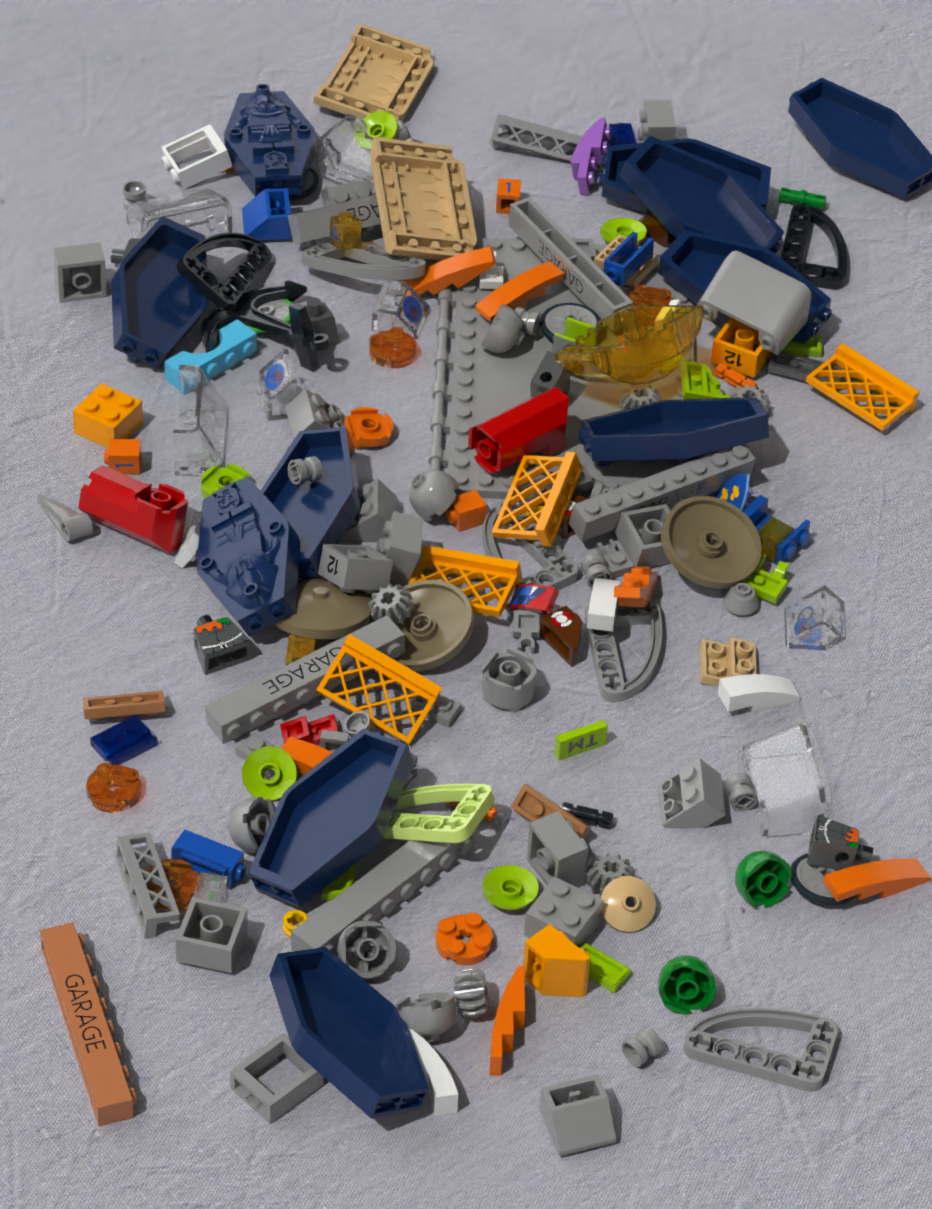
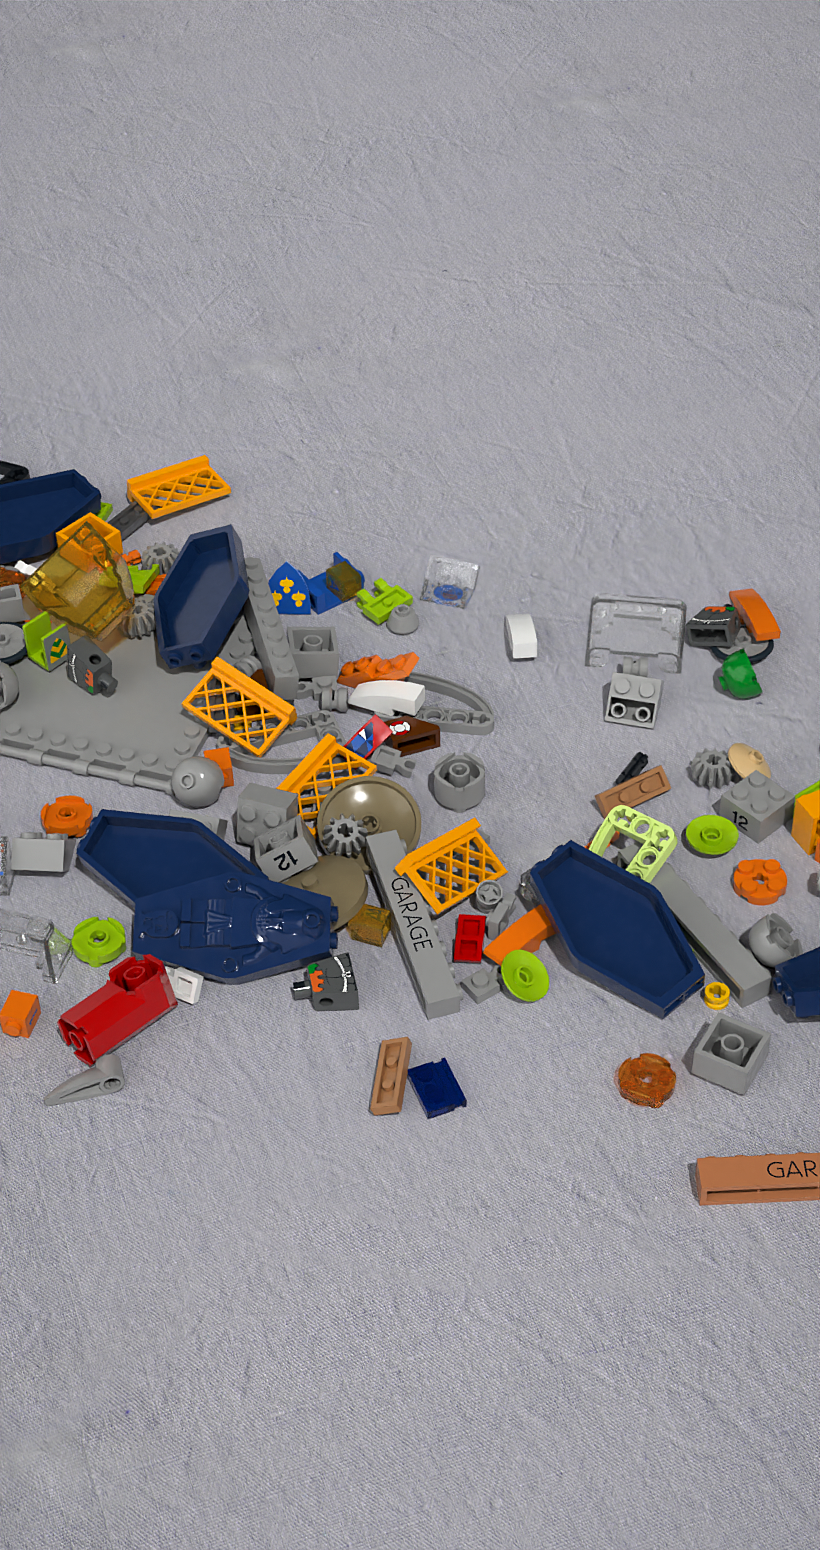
camera: 70 degrees left, 0 degrees up
(113, 775) = (500, 1092): clear orange plate -> none
(137, 886) = (647, 1102): light grey fence -> none
(209, 856) = (624, 1041): blue window -> none
(212, 887) = (675, 1047): clear brick -> none
(250, 822) = (597, 997): light grey cylinder -> none
(307, 470) = (136, 858): light grey wheel -> none
(521, 430) = (151, 697): red brick -> none
(557, 850) = (690, 790): light grey brick -> none
(581, 740) = (544, 753): lime tile -> none
(711, 542) = (348, 609): dark tan dish -> none
(725, 660) = (474, 646): tan slope -> none
(759, 299) = (64, 501): light grey windscreen -> none

